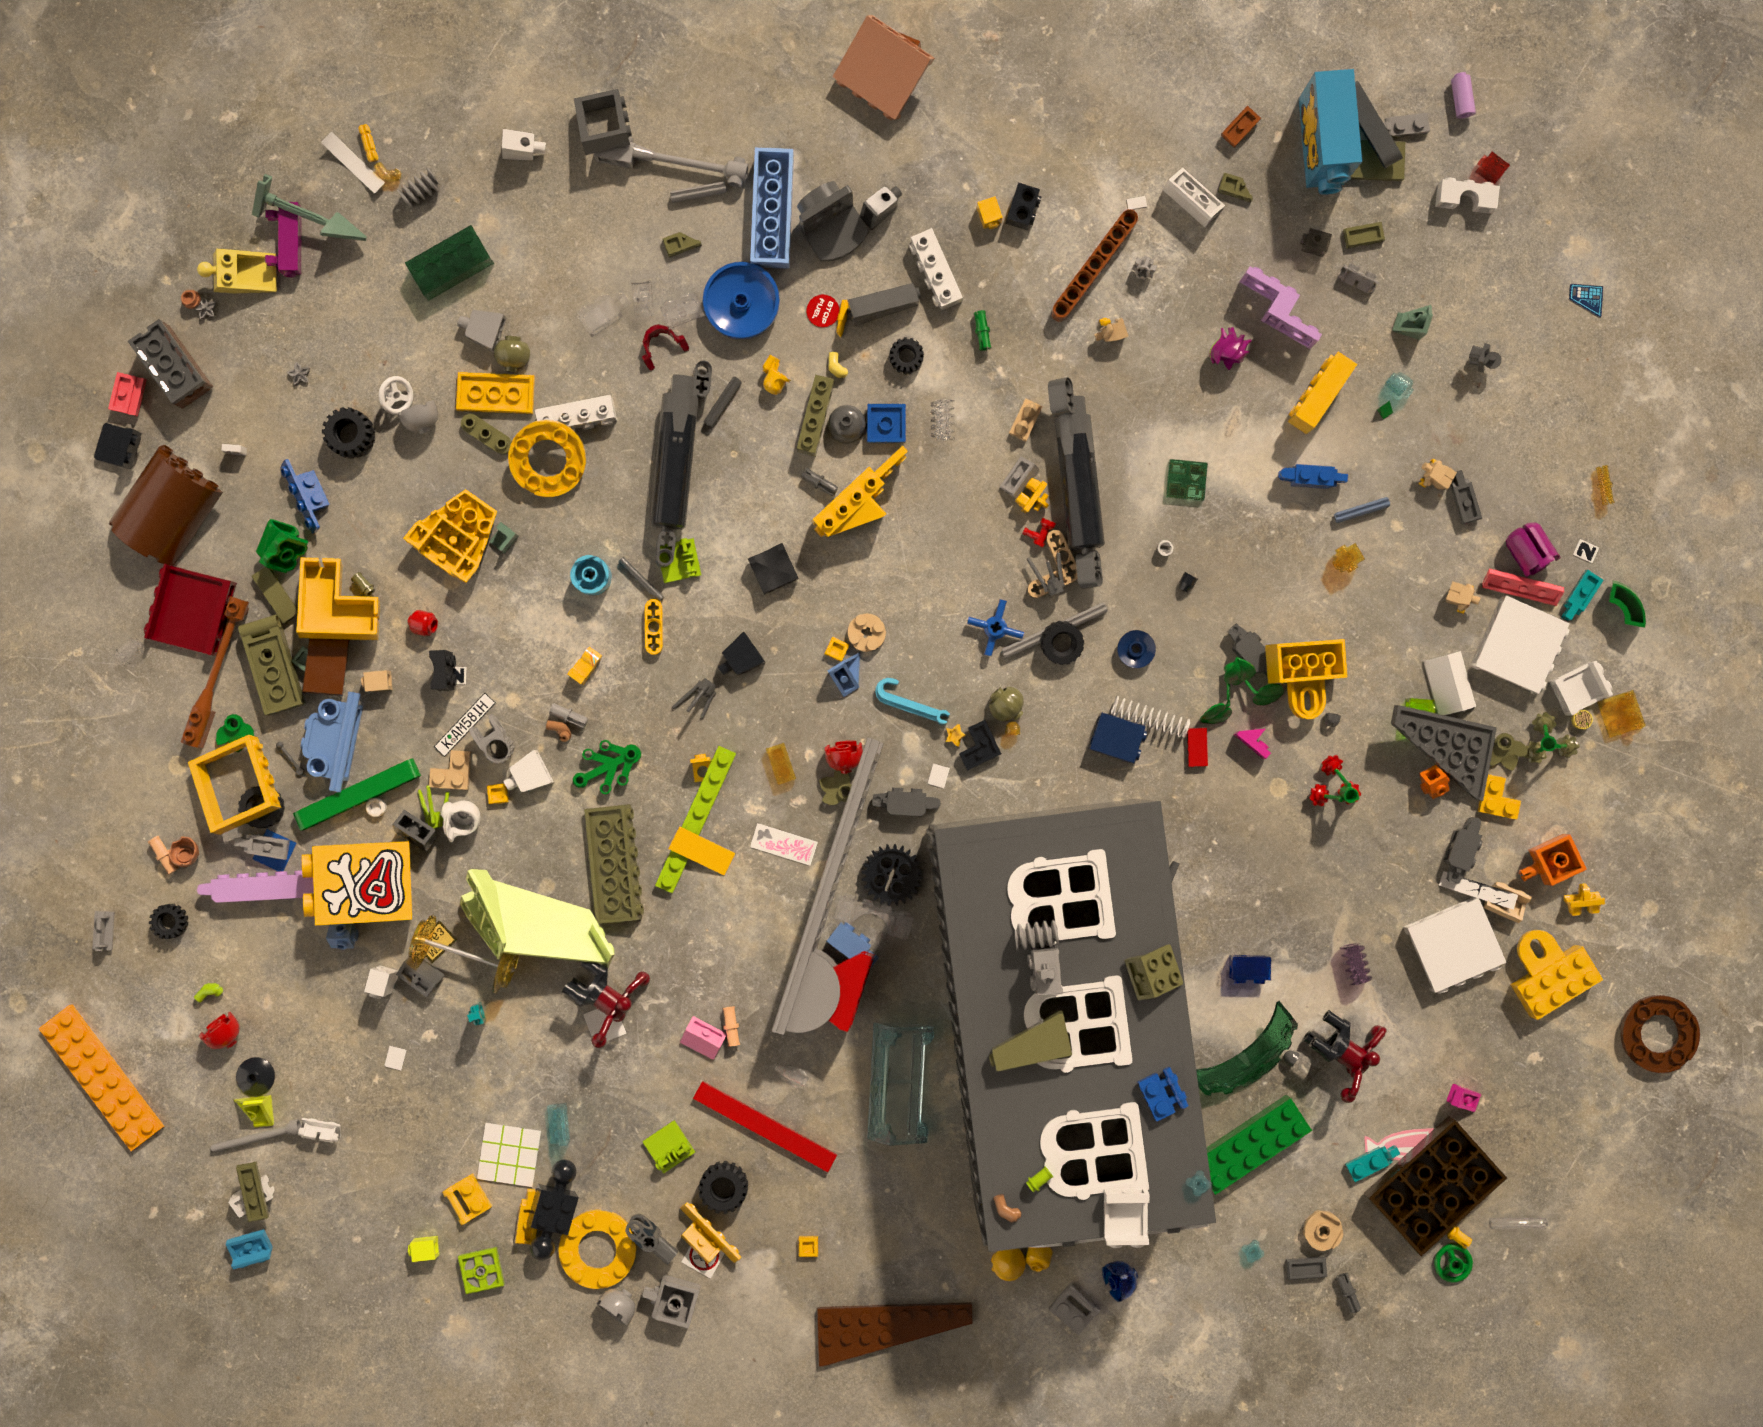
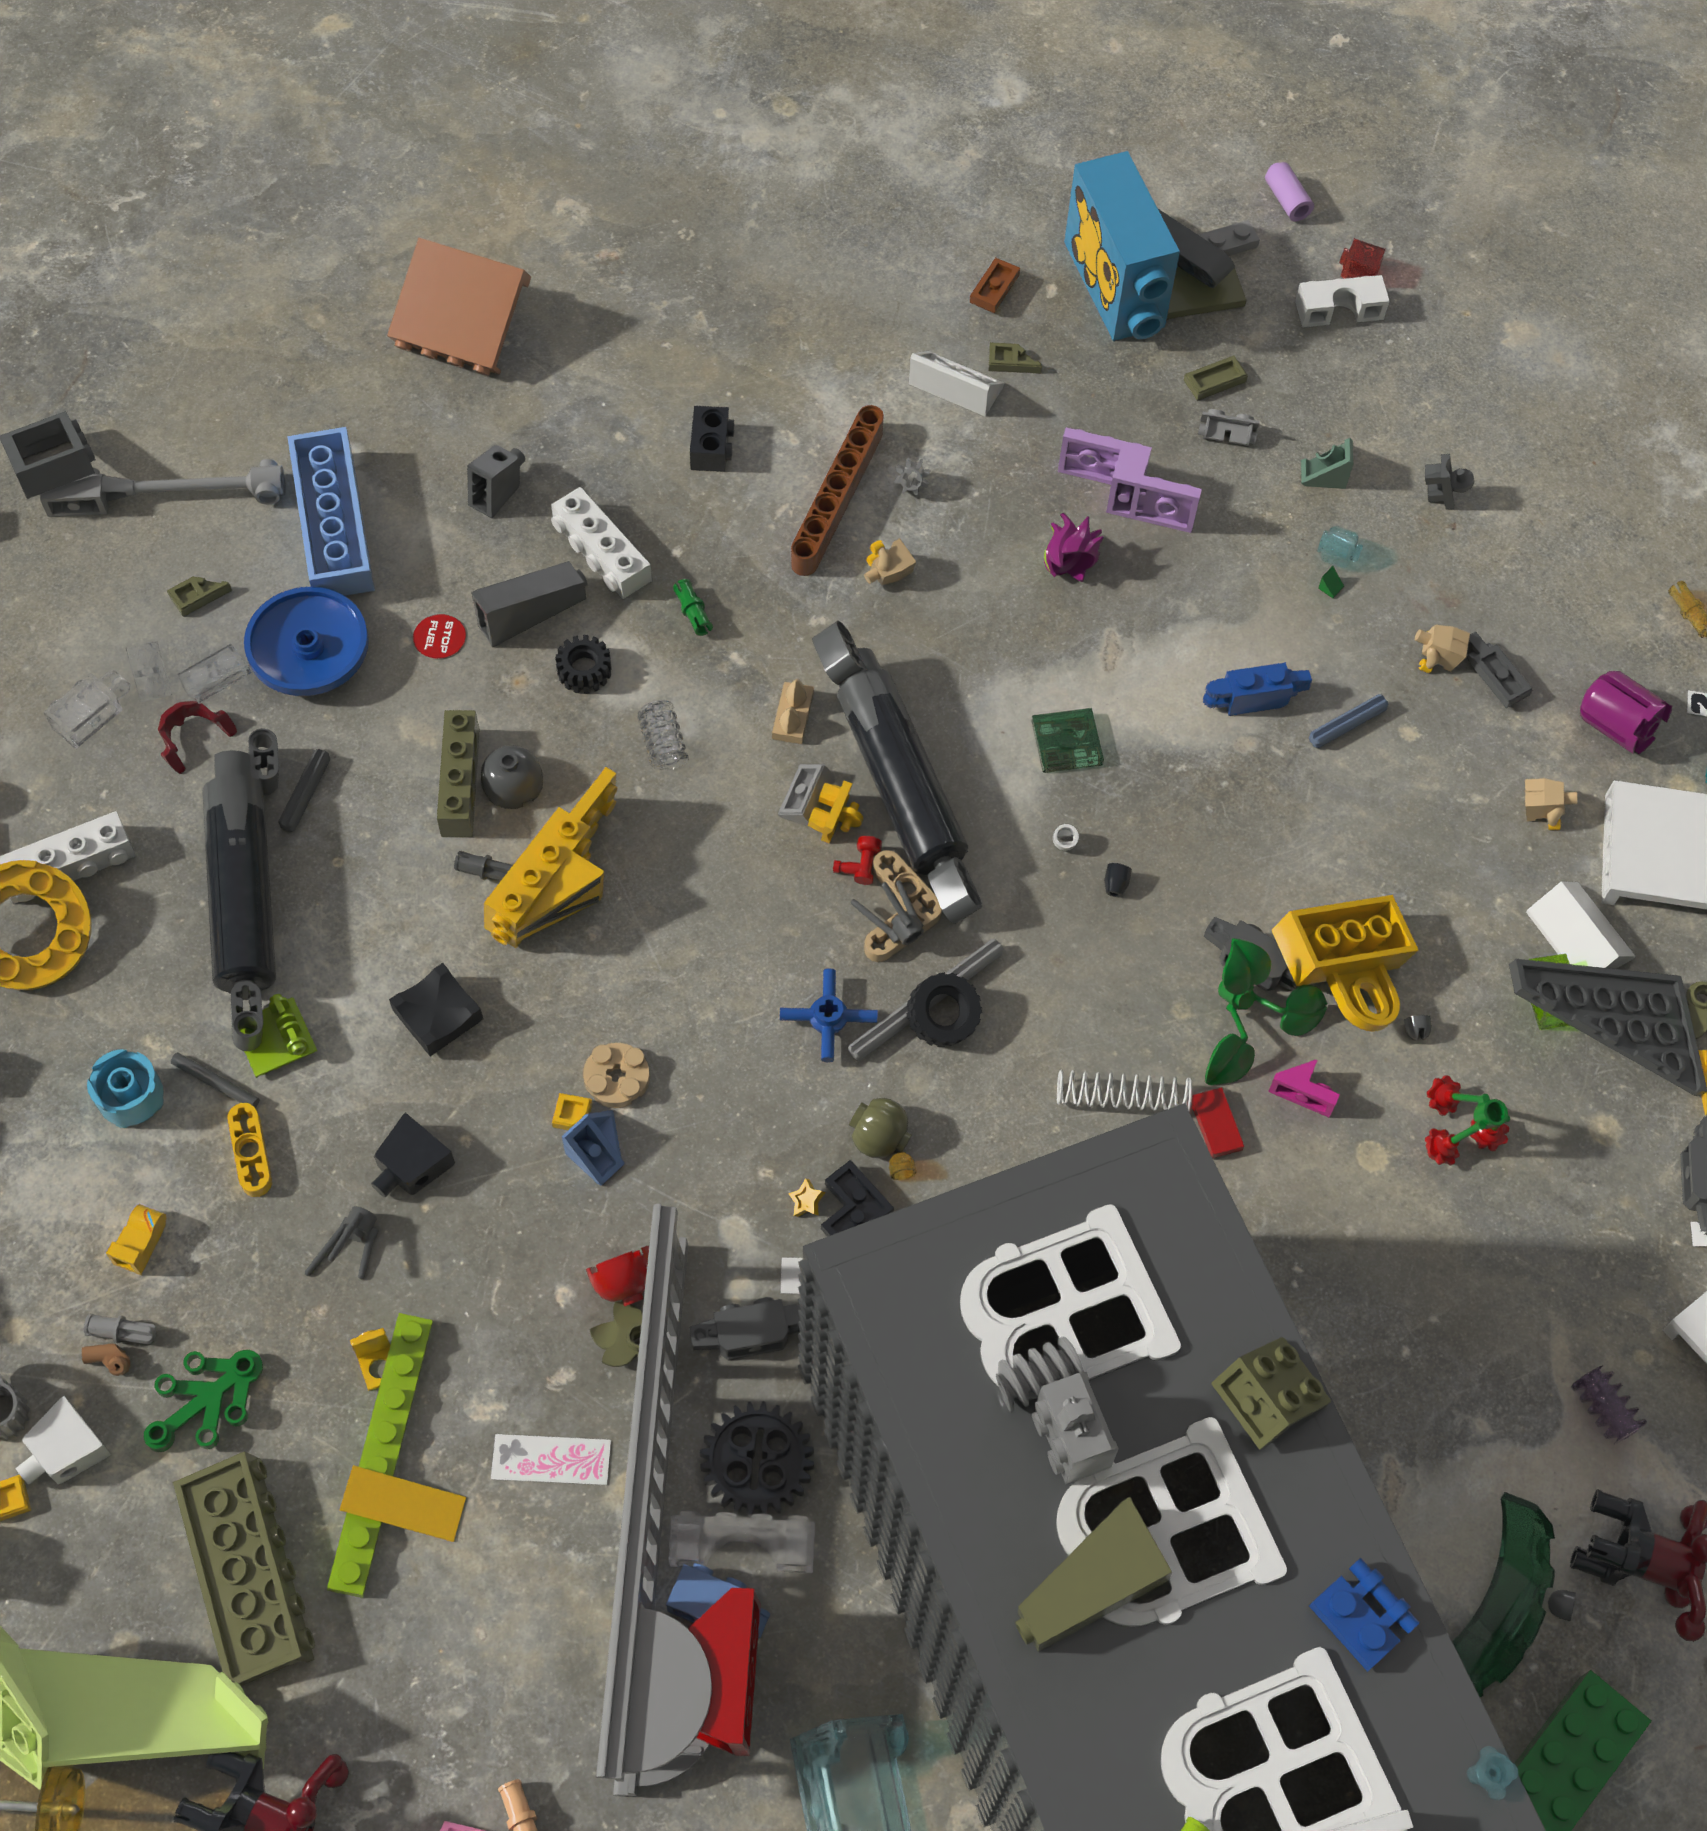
camera: 15 degrees left, 25 degrees down
(698, 192) = (213, 521): light grey axle -> none
(774, 380) = (381, 737): yellow piece -> none
(781, 763) = (516, 1318): clear yellow plate -> none
(831, 221) = (421, 509): dark grey piece -> none
(835, 368) = (472, 701): light yellow arm -> none
(842, 317) = (471, 637): yellow piece -> none
(886, 423) = (572, 760): blue plate -> none
(908, 705) = (770, 1174): medium azure piece -> none
(989, 213) = (662, 456): yellow brick -> none
(1117, 738) = (1072, 1121): dark blue brick -> none
(1138, 202) = (882, 403): white sticker -> none
(1146, 649) = (1070, 981): dark blue dish -> none
(1250, 968) = (1433, 1461): clear blue brick -> none
(1315, 242) = (1150, 396): clear smoke brick -> none
(1320, 395) = (1228, 573): yellow brick -> none
(1353, 557) = (1352, 786): clear yellow brick -> none
(1434, 782) = (1619, 1078): orange brick -> none
(1523, 587) = (1637, 768): coral plate -> none
(1588, 297) = (1561, 388): dark blue sticker -> none

